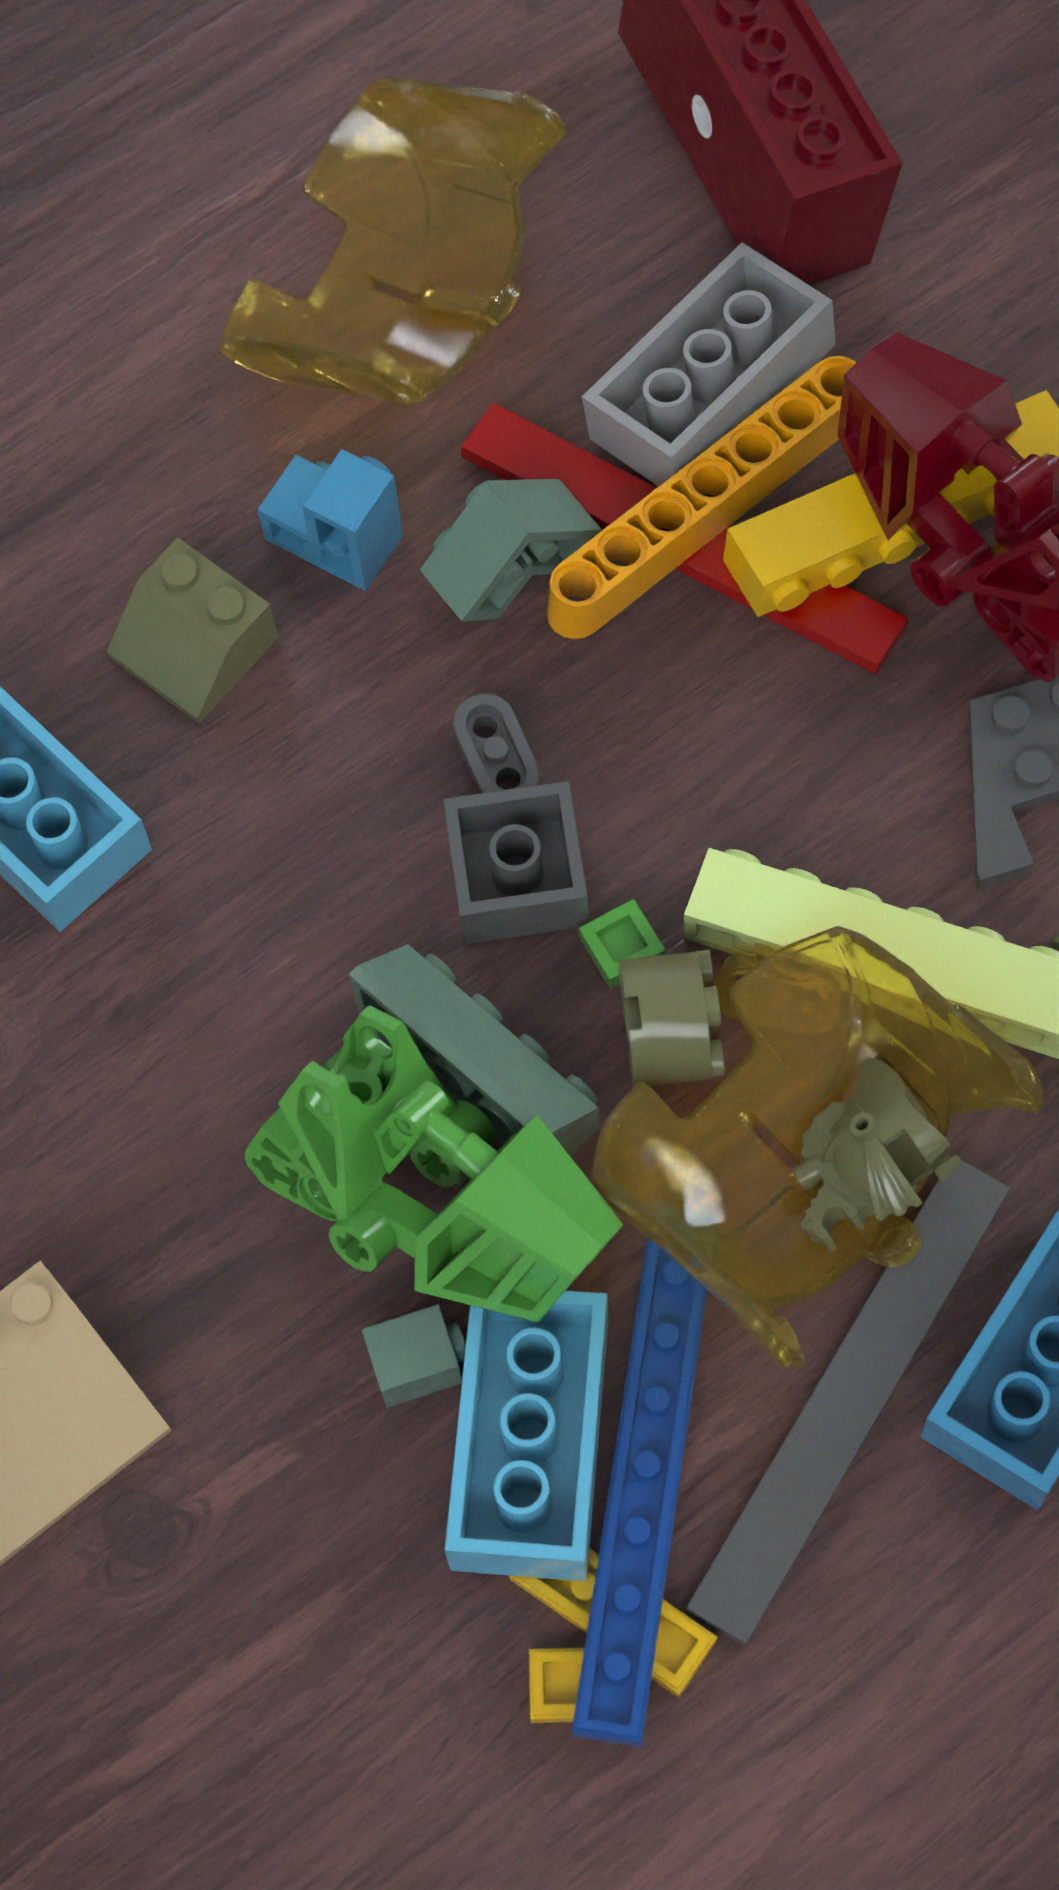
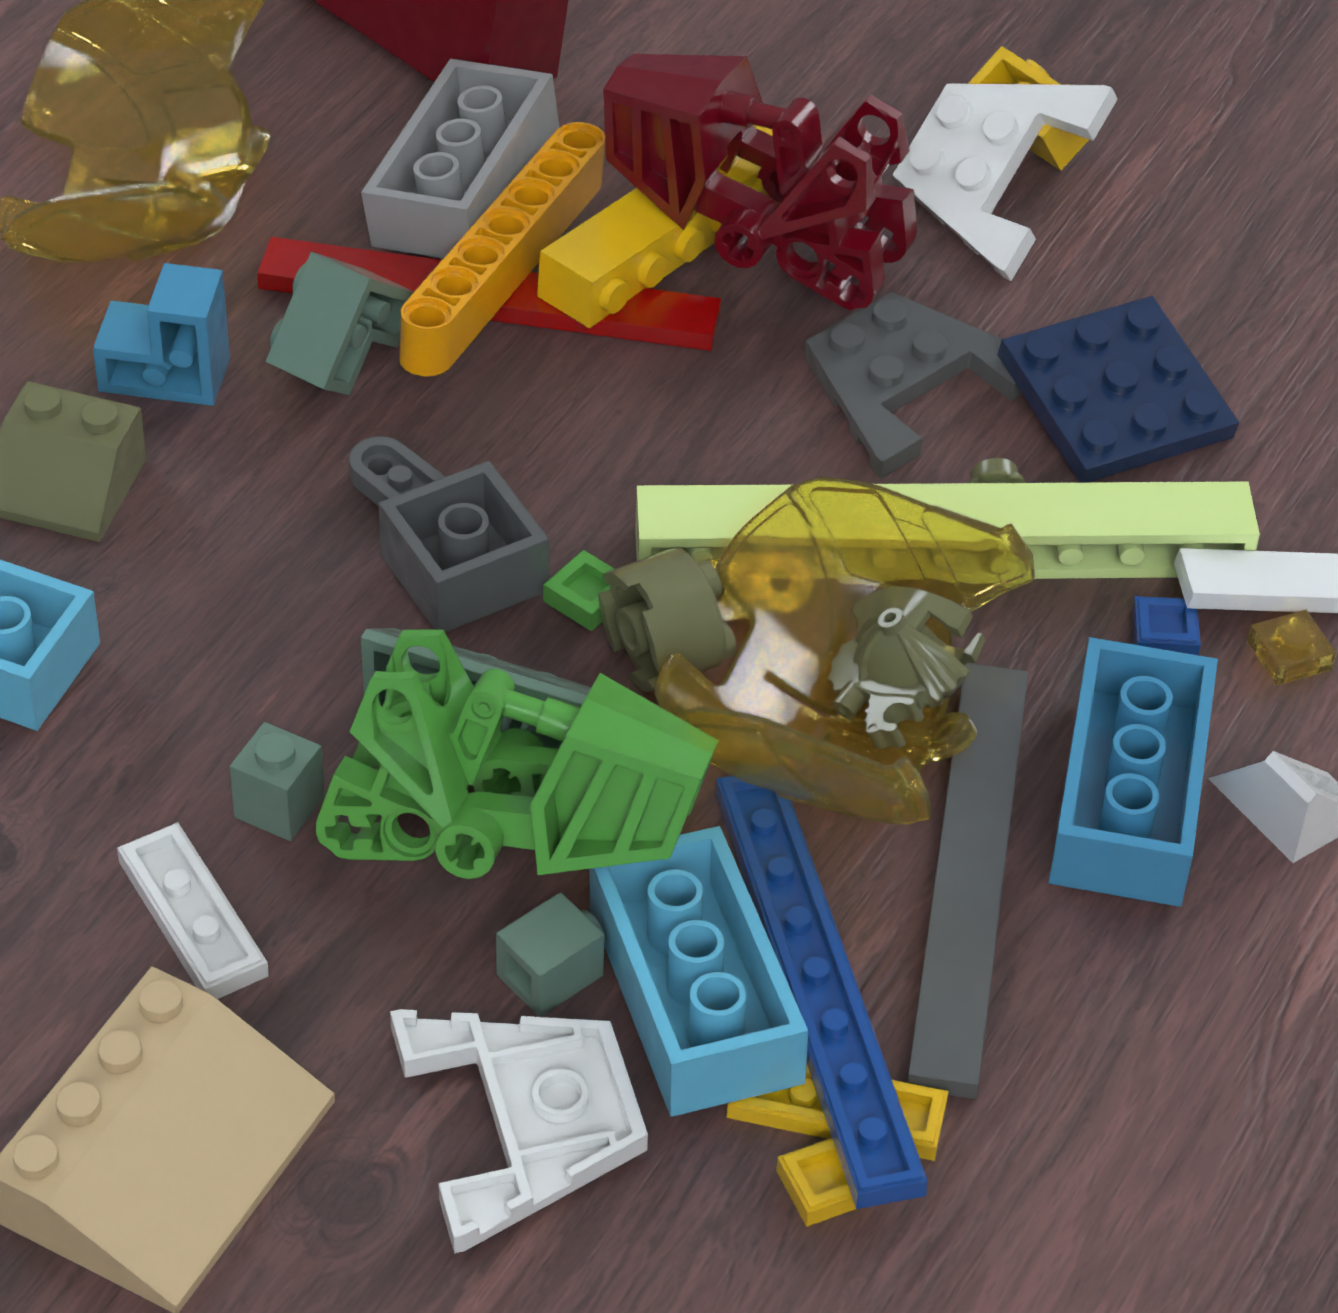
camera: 30 degrees left, 20 degrees down
(121, 1184) = (192, 912): none -> white tile
(241, 1075) = (277, 781): none -> sand green brick
(353, 1518) = (555, 1102): none -> white wing

